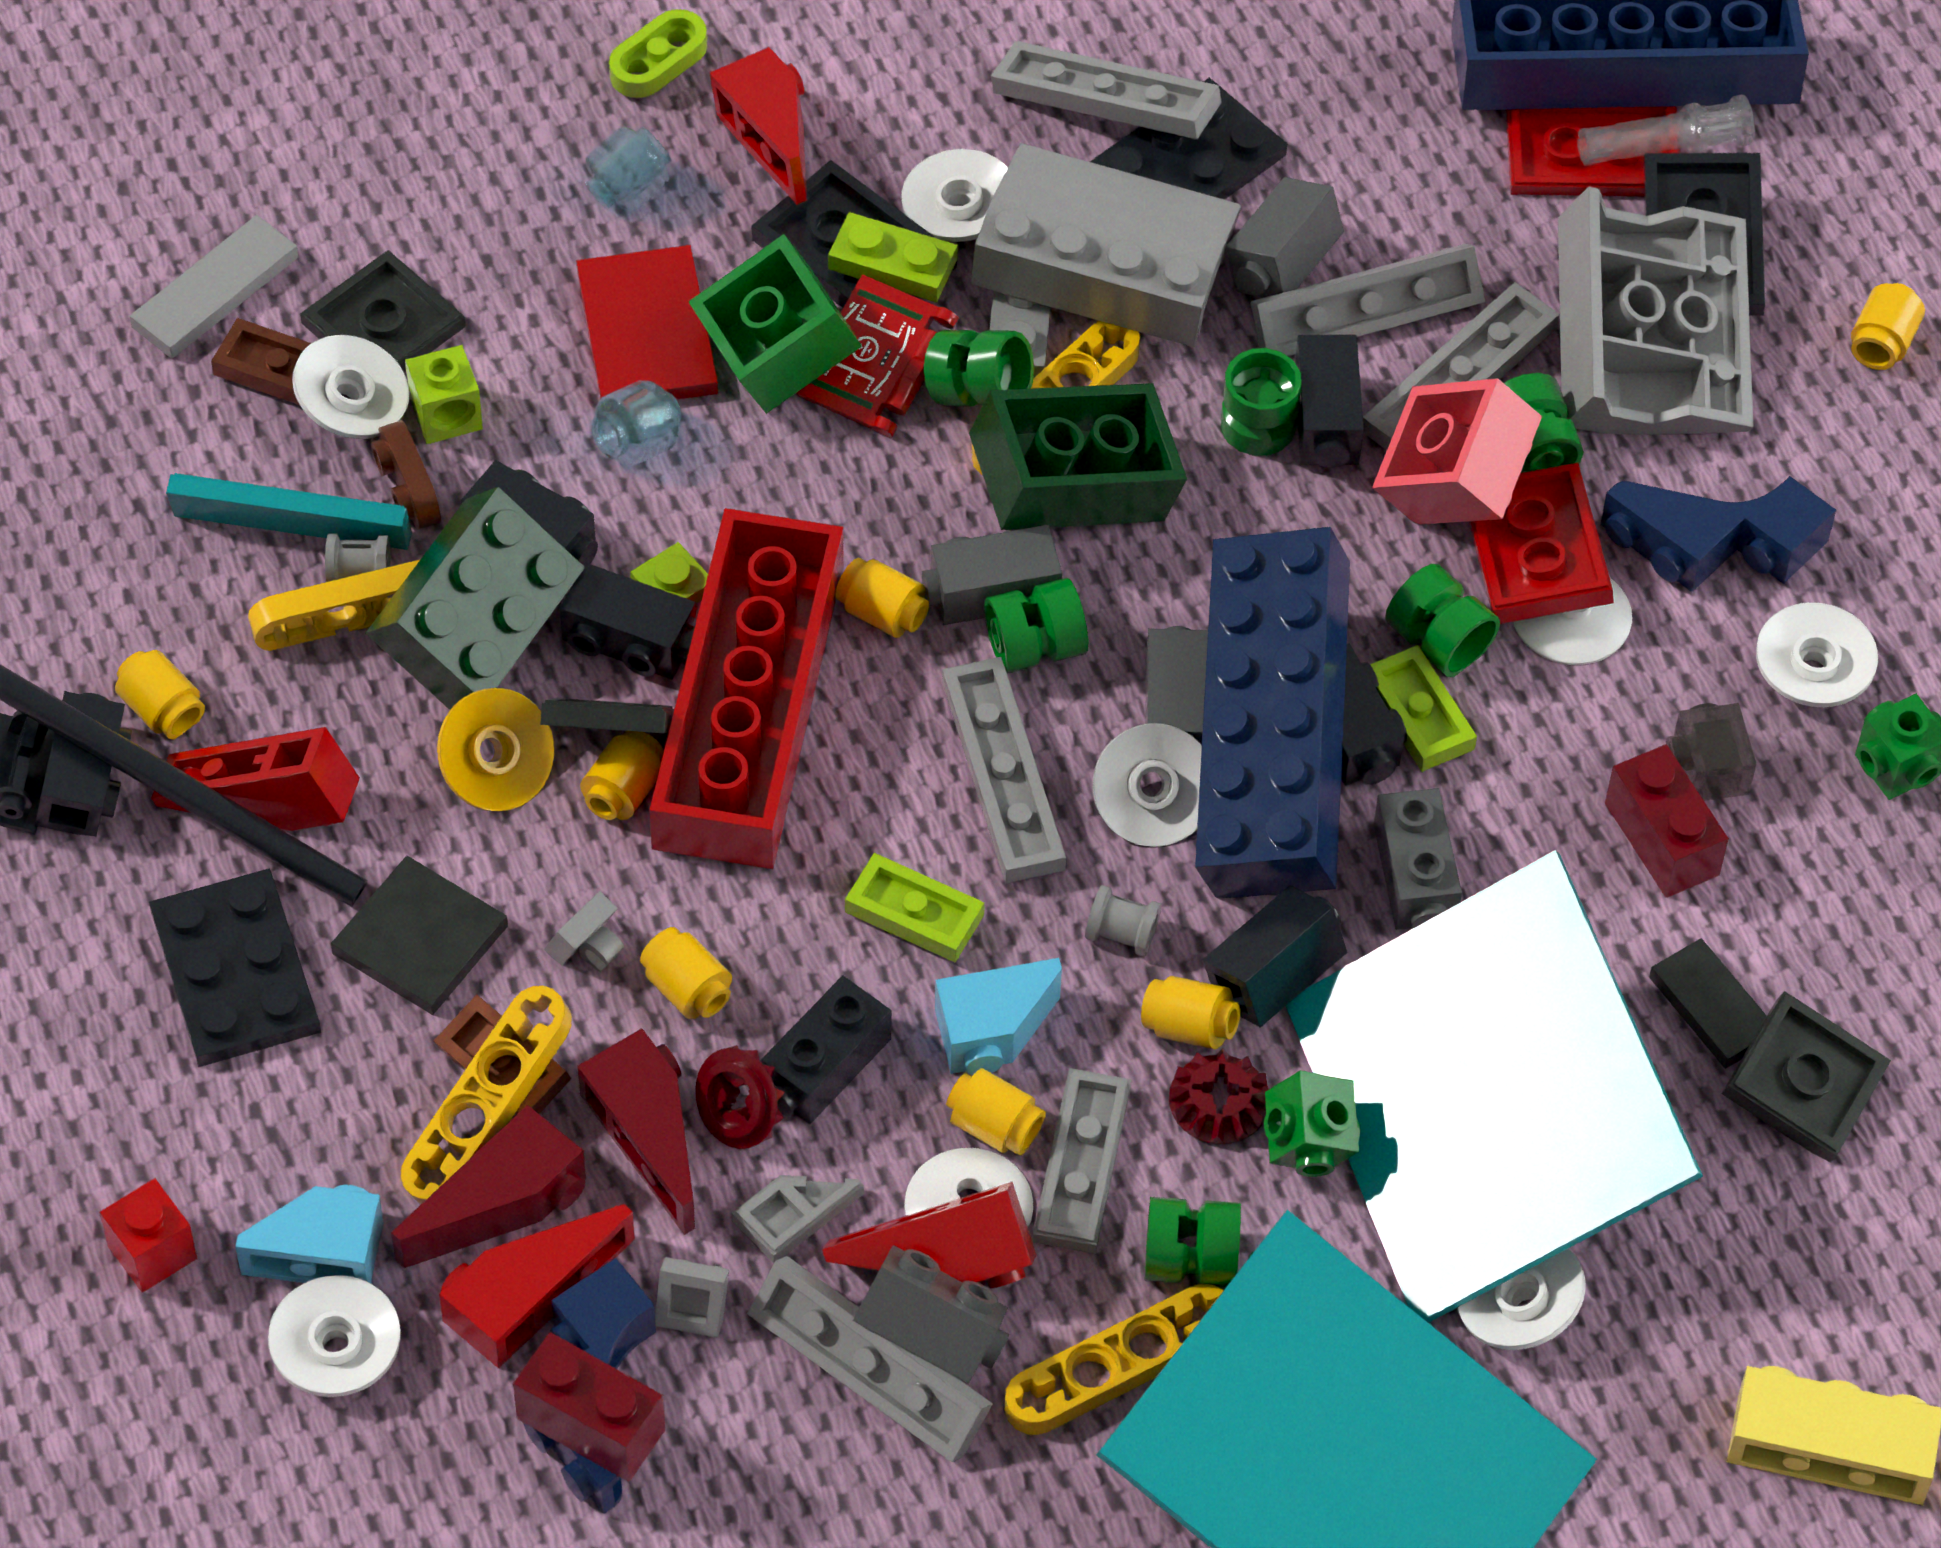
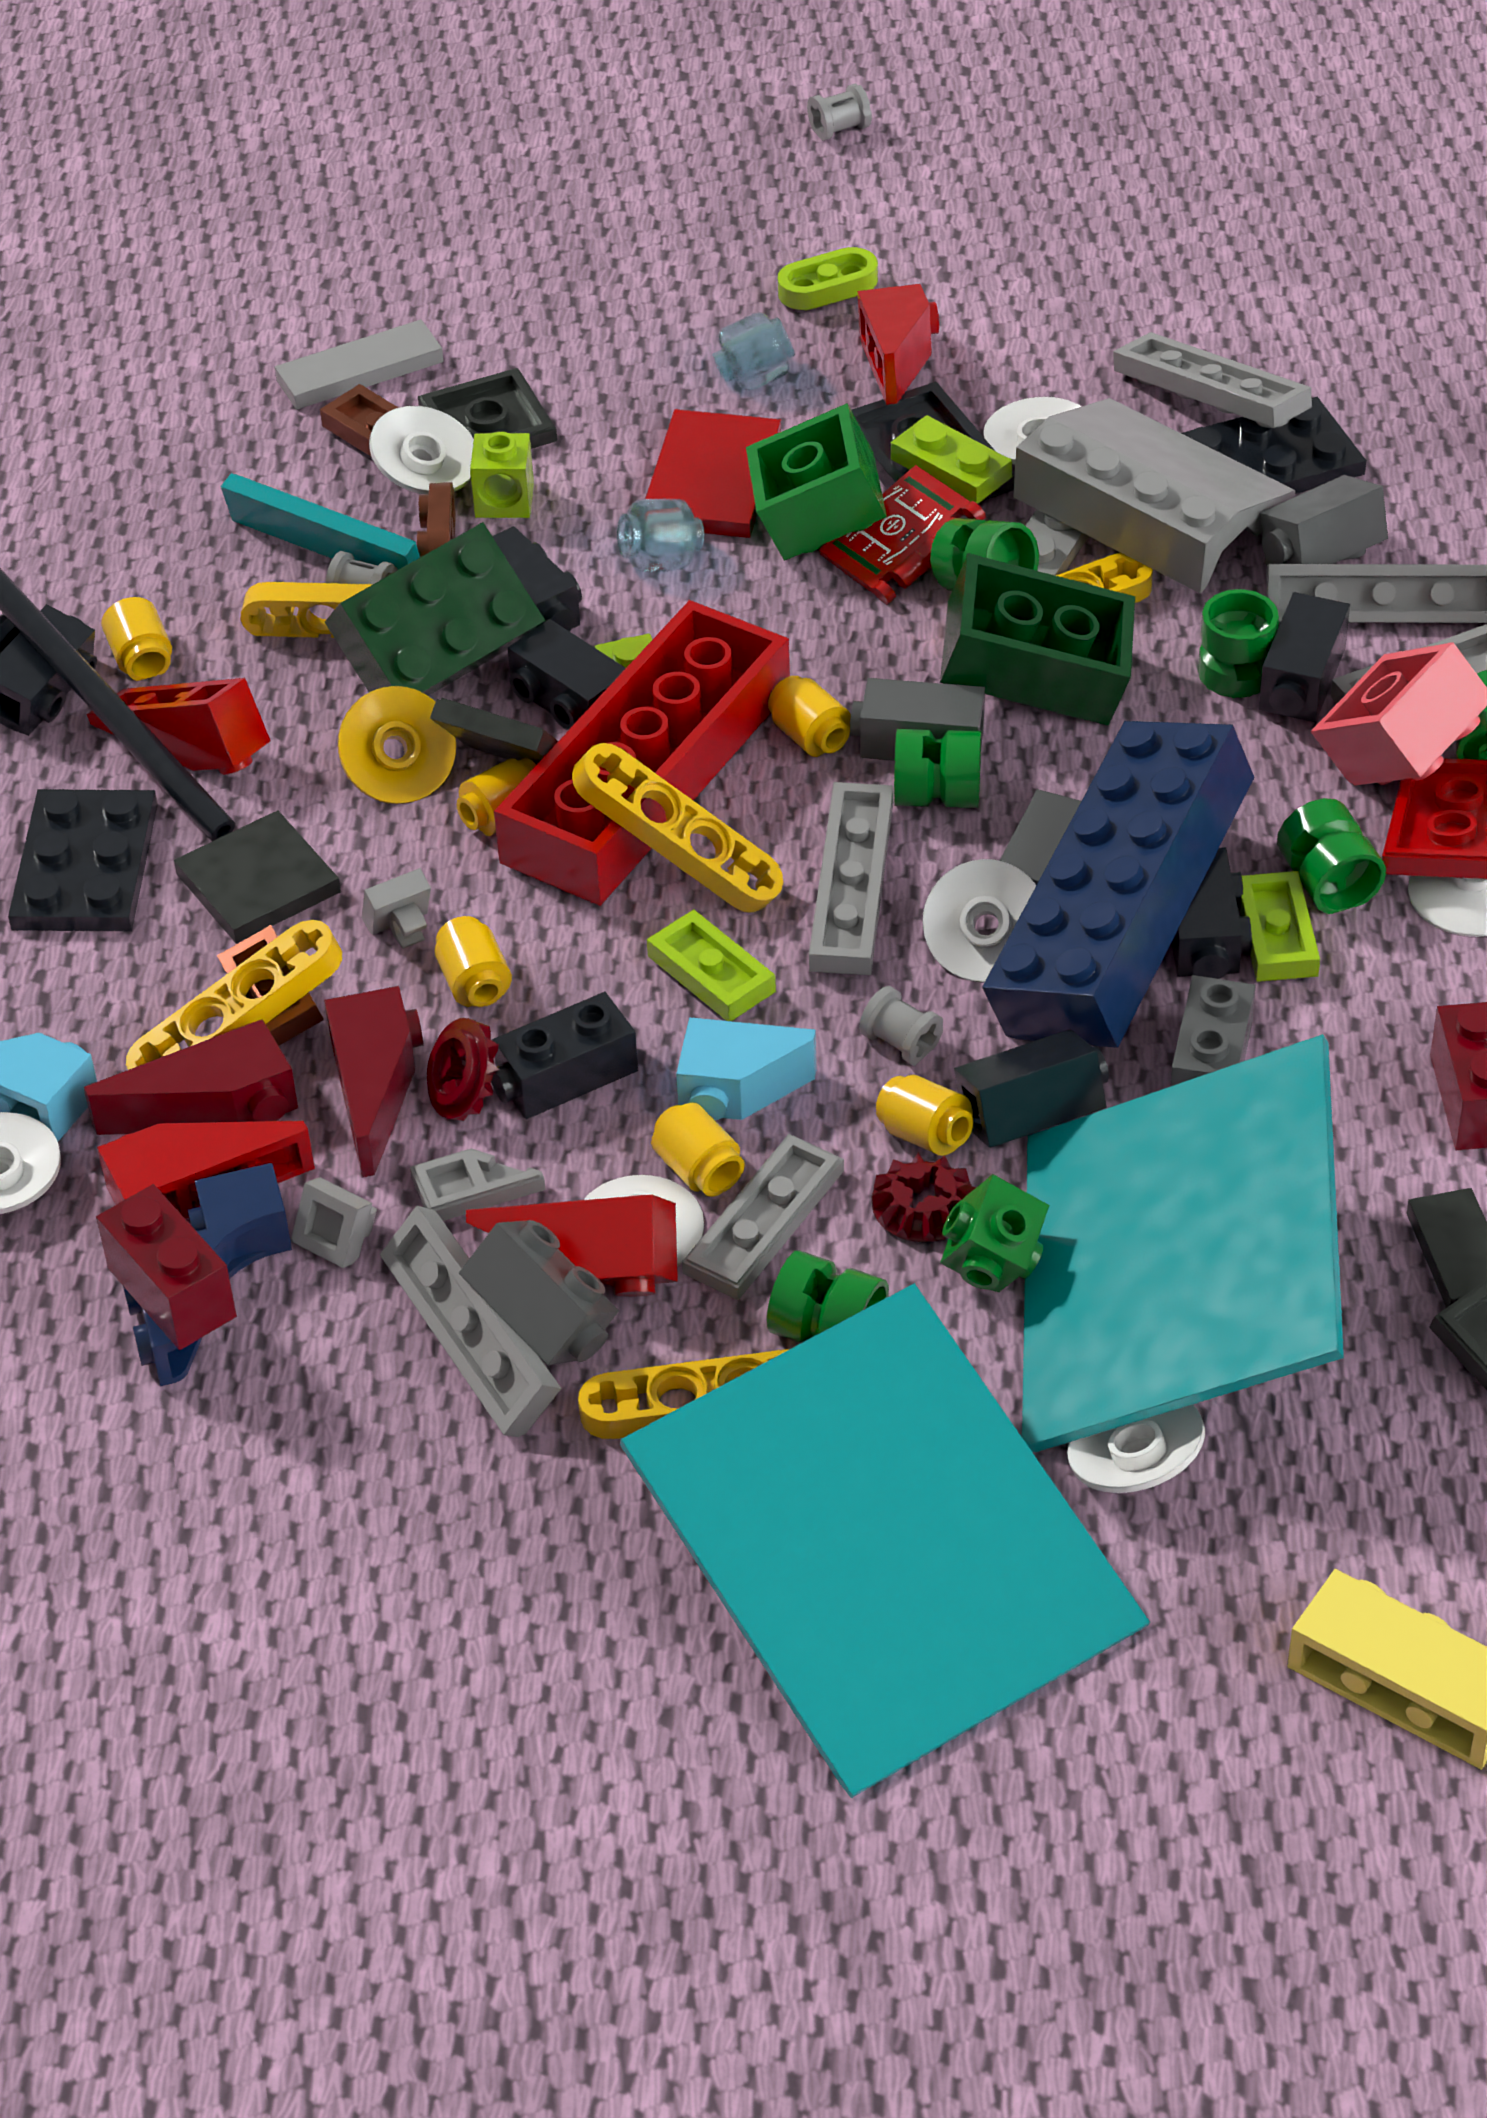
camera: 25 degrees right, 10 degrees down
(833, 770) = (682, 820): none -> yellow beam

